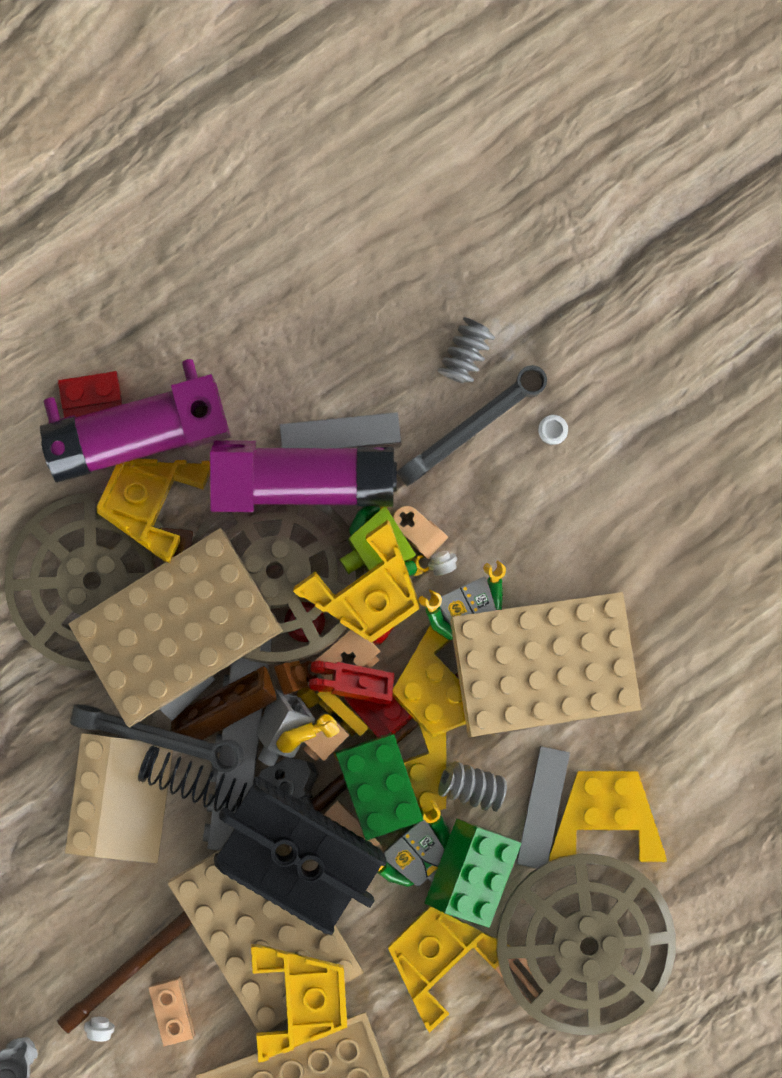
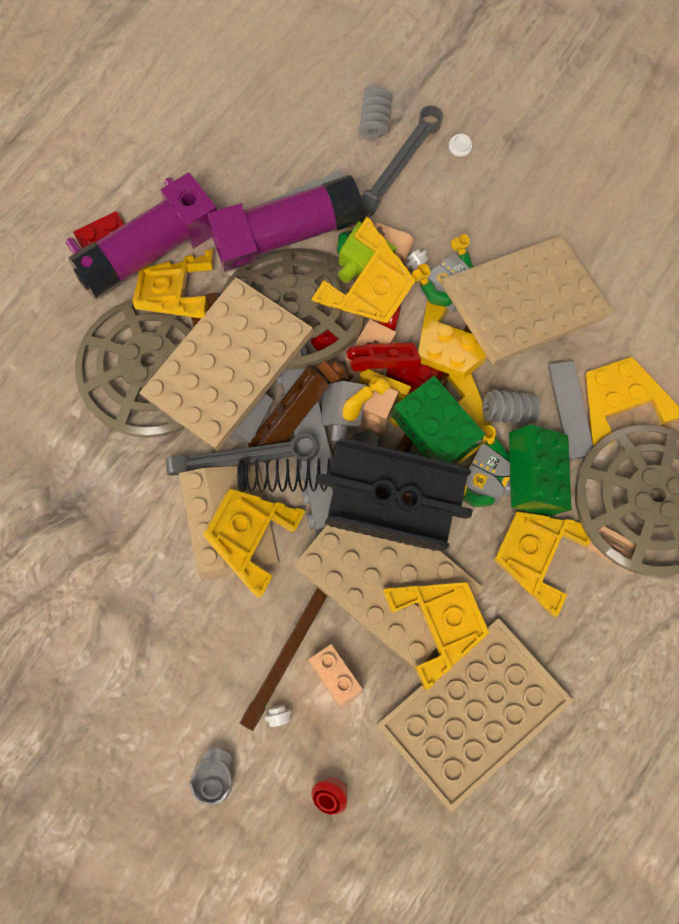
camera: 25 degrees left, 15 degrees down
(125, 820) = (239, 528): none -> yellow wing

